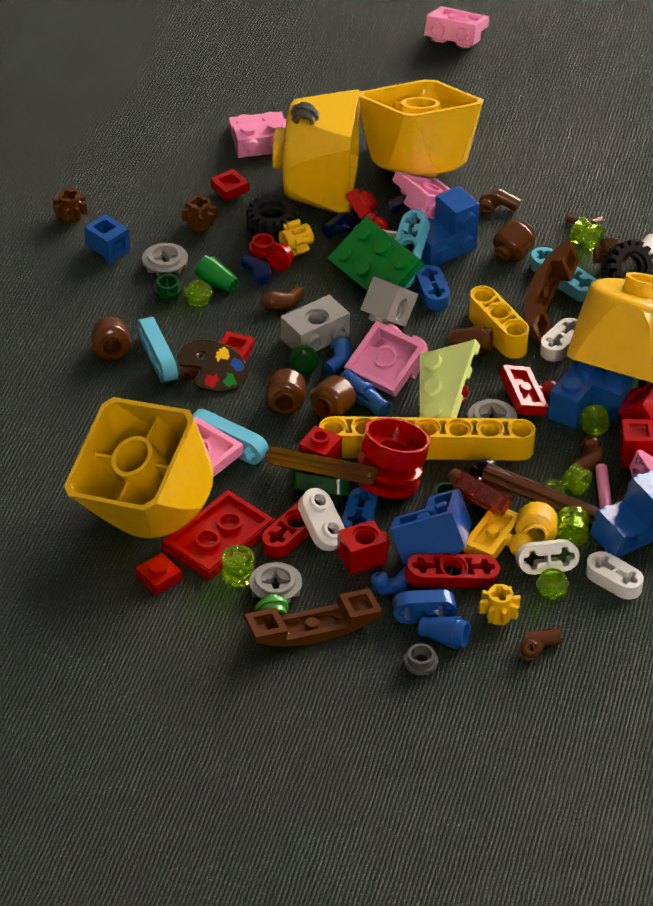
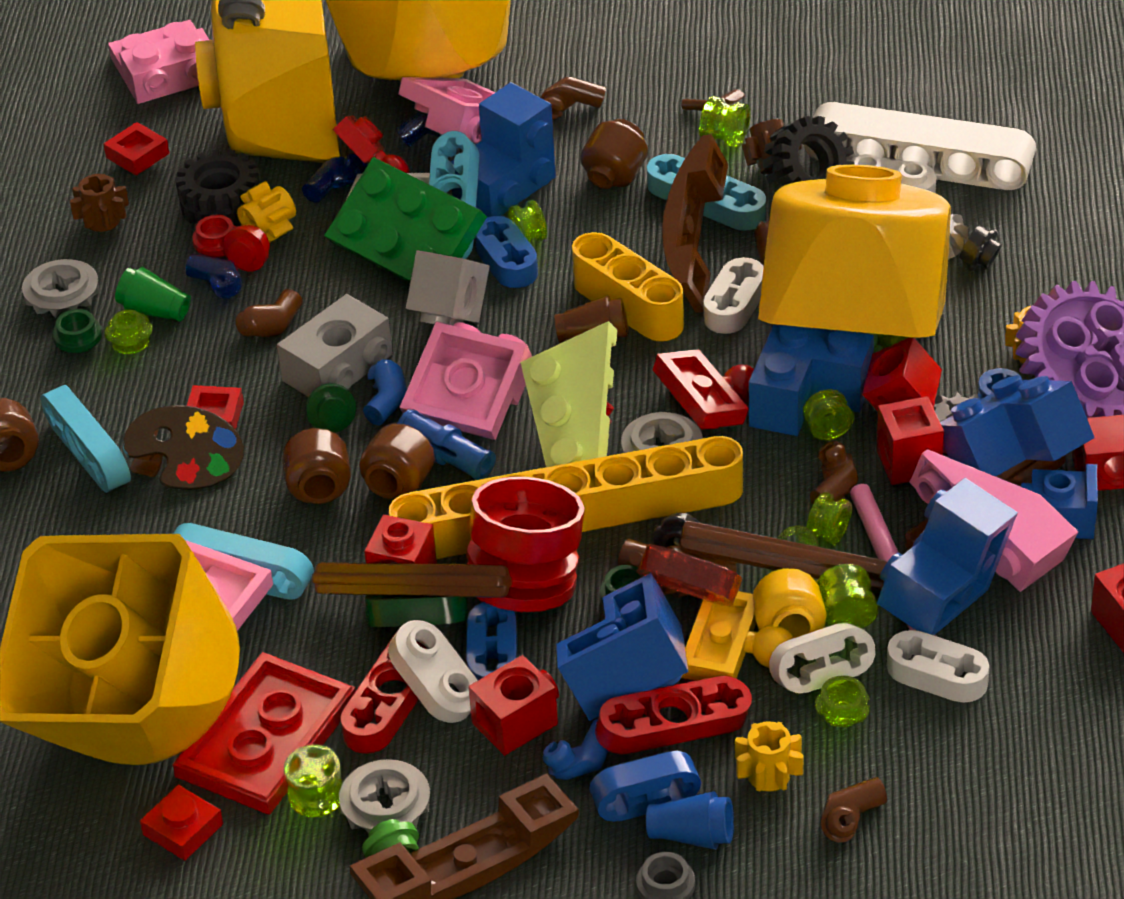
camera: 10 degrees left, 0 degrees up
(451, 272) = (529, 220): none -> clear neon green bush

